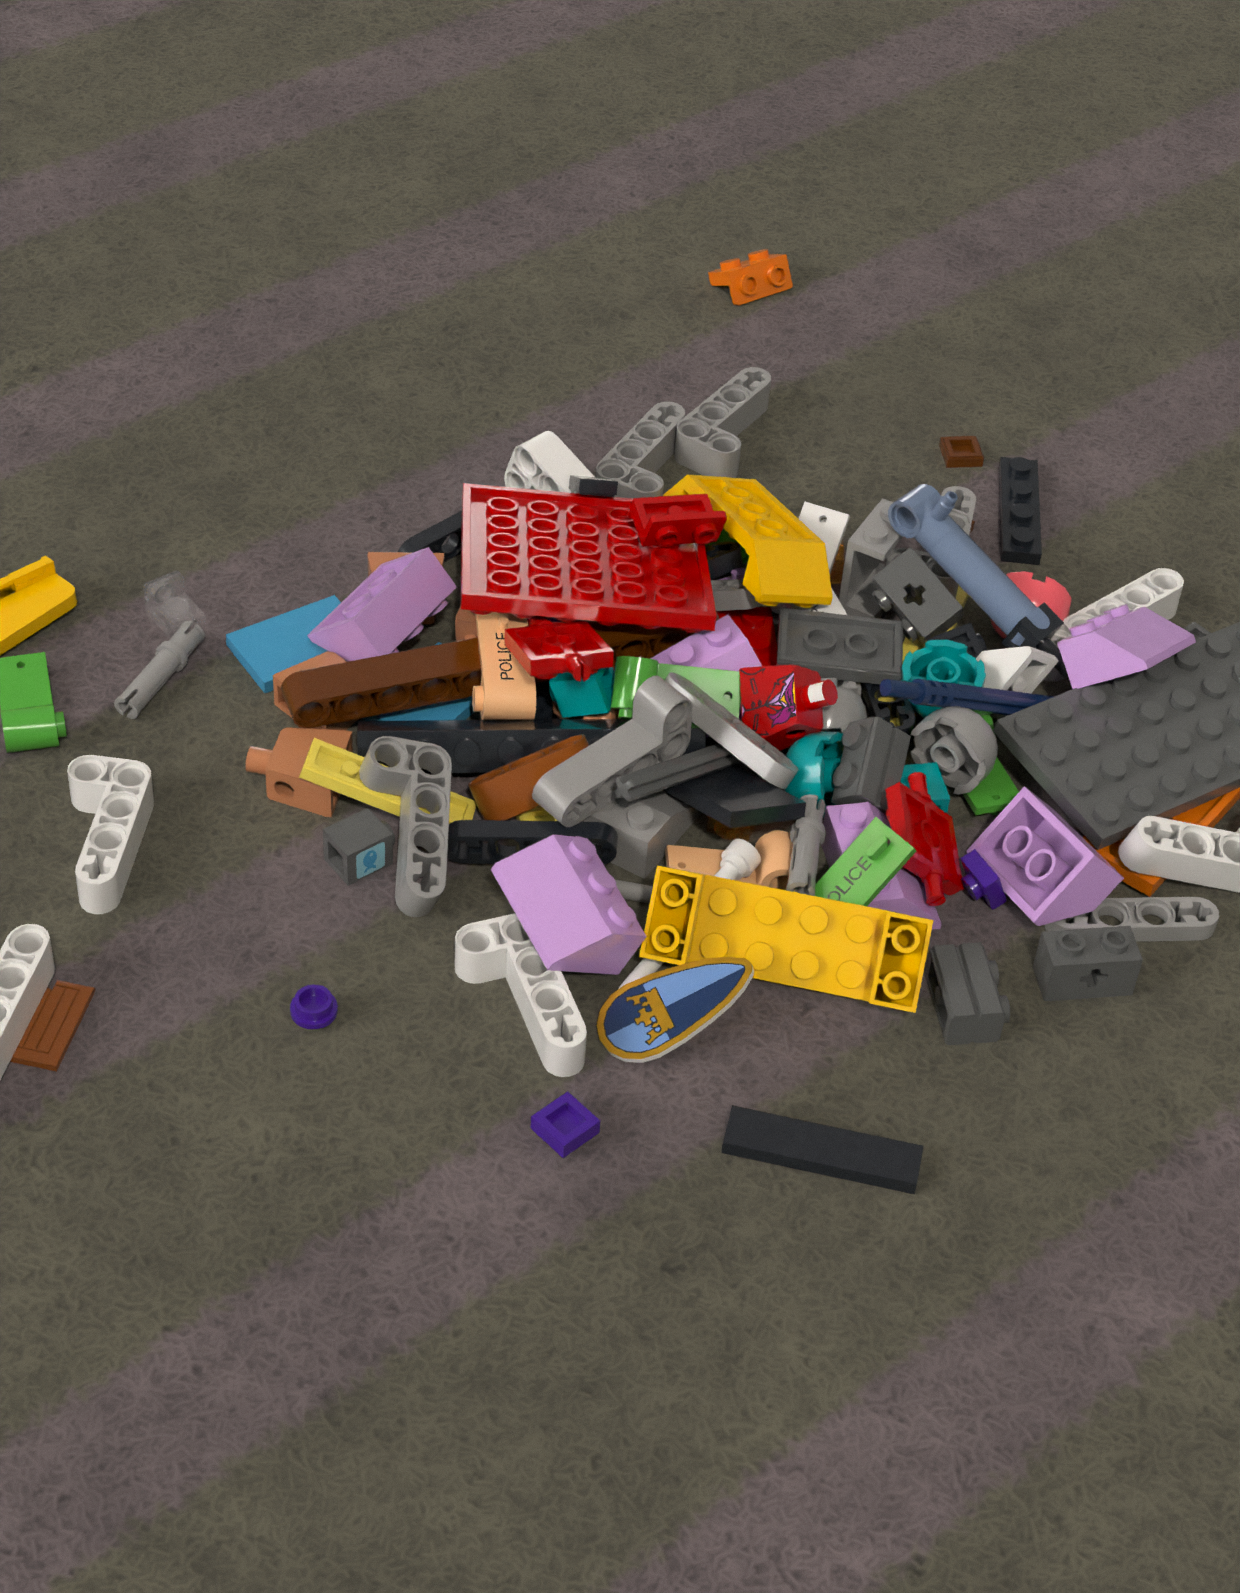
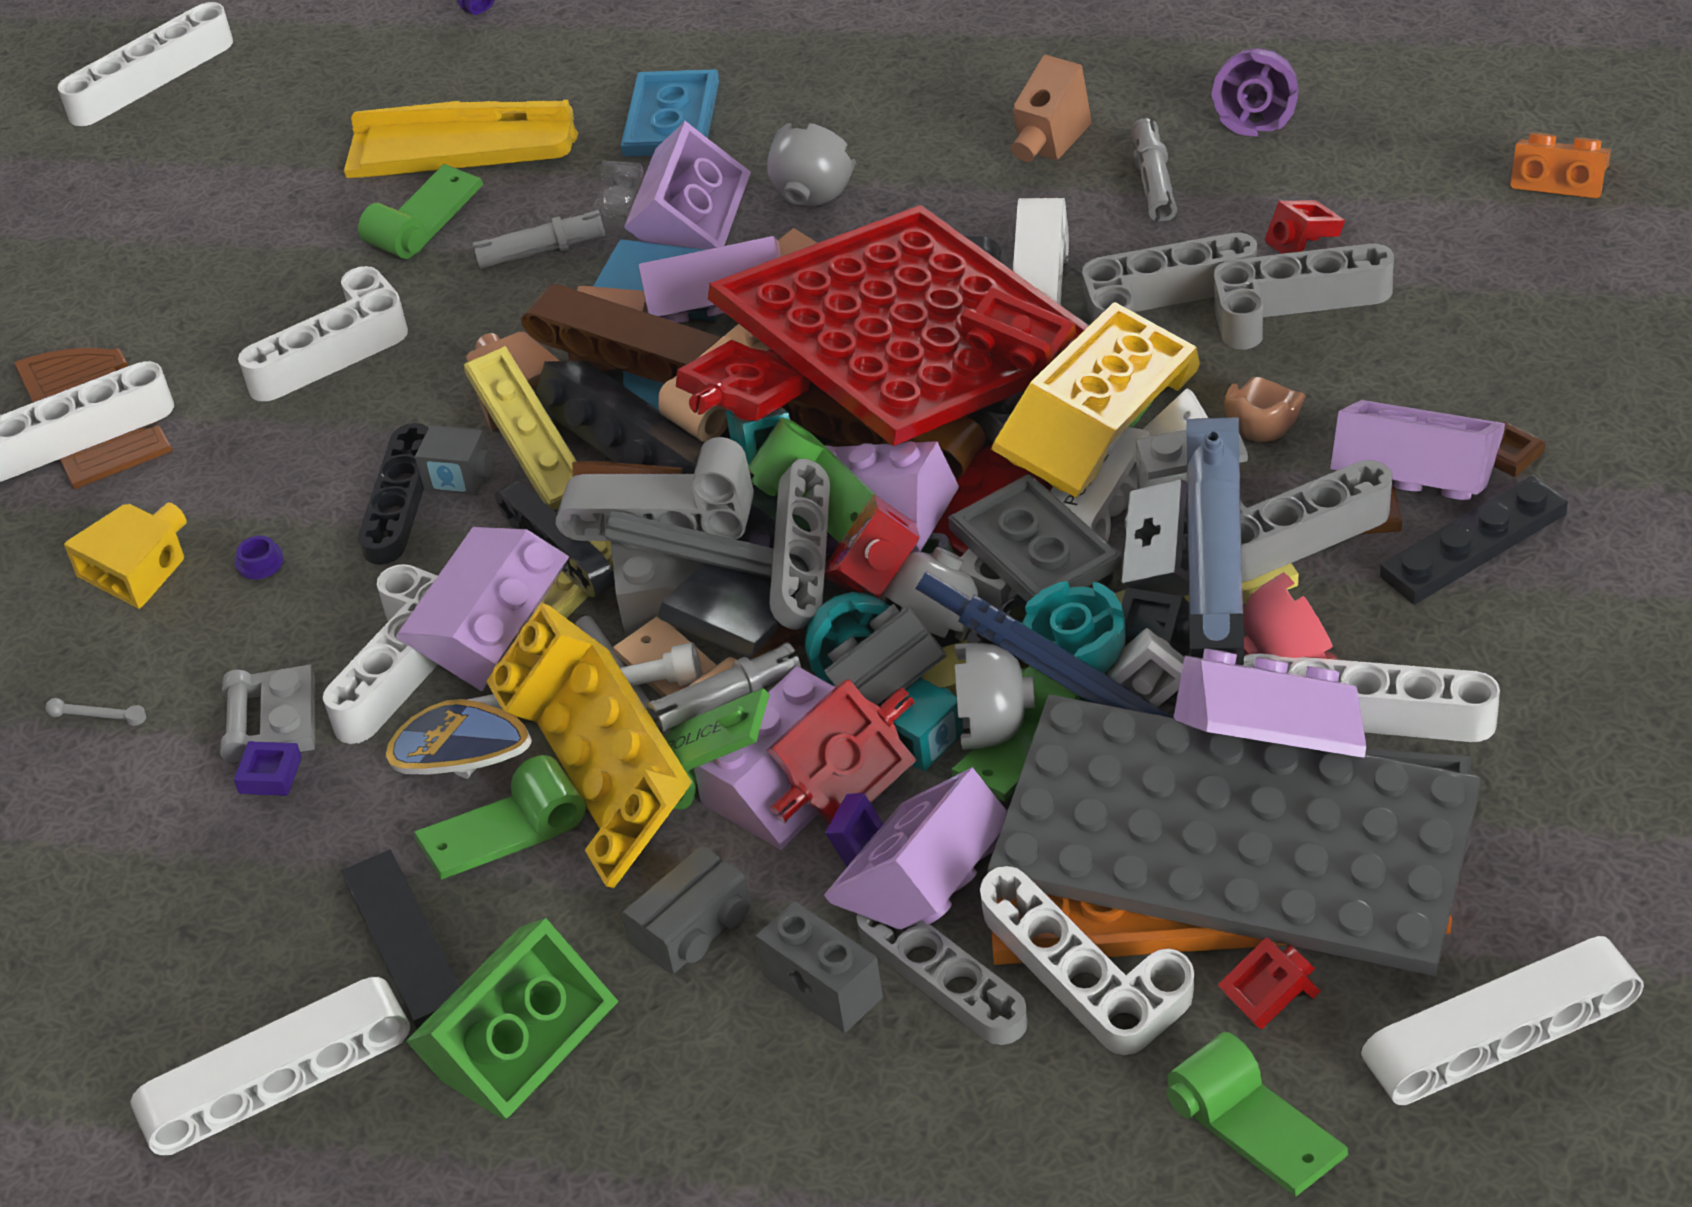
camera: 60 degrees right, 0 degrees up
(108, 533) = (663, 103): none -> dark azure tile
(212, 1071) = (129, 551): none -> yellow torso
(228, 577) = (688, 193): none -> lavender slope
(305, 507) = (809, 165): none -> light grey cylinder
(347, 893) = (390, 492): none -> black beam
(392, 1174) = (133, 715): none -> light grey hinge
(414, 405) = (1051, 110): none -> nougat torso
(415, 827) = (484, 462): light grey beam -> none
(500, 1083) = (285, 709): none -> light grey plate
(522, 397) = (1151, 160): none -> light grey pin
(525, 308) = (1255, 83): none -> medium lavender cylinder
(593, 486) = (1028, 268): black tile -> none
(667, 385) = (1301, 221): none -> red bracket
(772, 1032) = (540, 808): none -> bright green door
(823, 493) = (1263, 409): none -> nougat hair
(881, 1286) = (269, 1065): none -> white beam
(941, 464) = (1419, 446): none -> lavender slope
(970, 1132) = (513, 1019): none -> bright green slope

